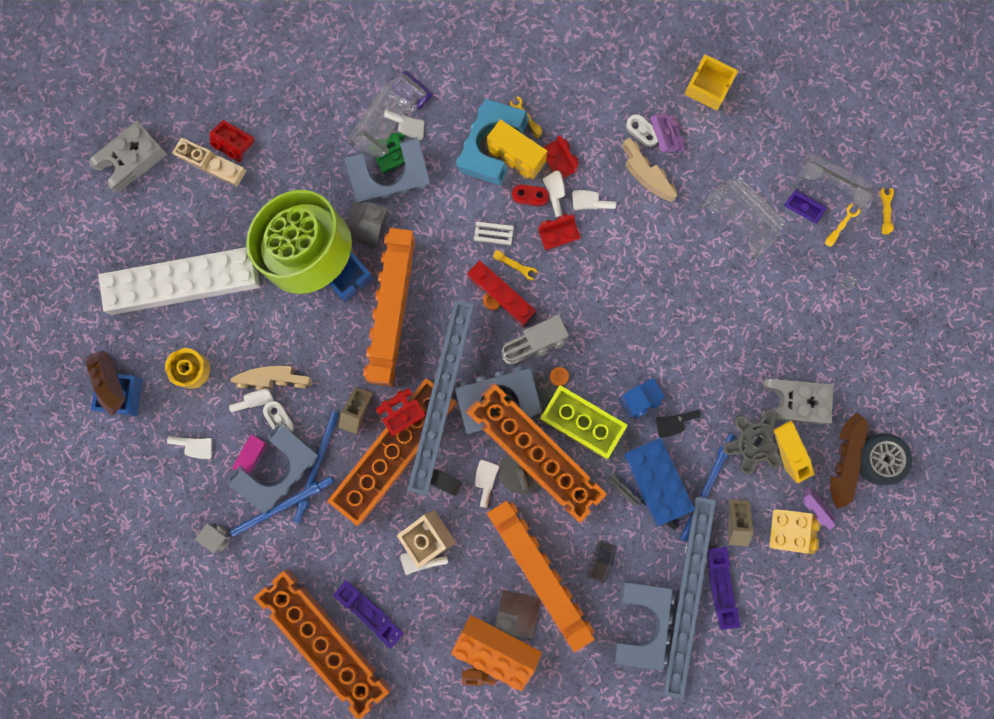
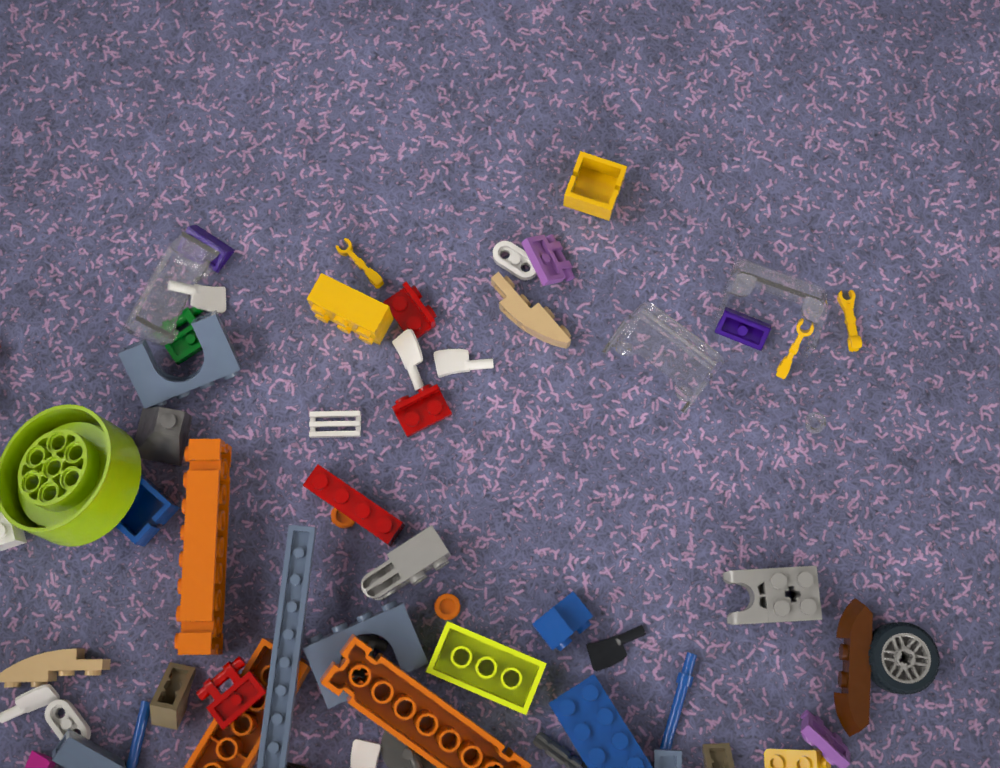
camera: 10 degrees left, 5 degrees down
(471, 160) = (292, 329): dark azure arch -> none
(499, 256) = (368, 462): yellow piece -> none
(529, 197) = (377, 366): red plate -> none
(749, 432) = (738, 670): dark grey plate -> none
(793, 453) = (777, 668): yellow slope -> none

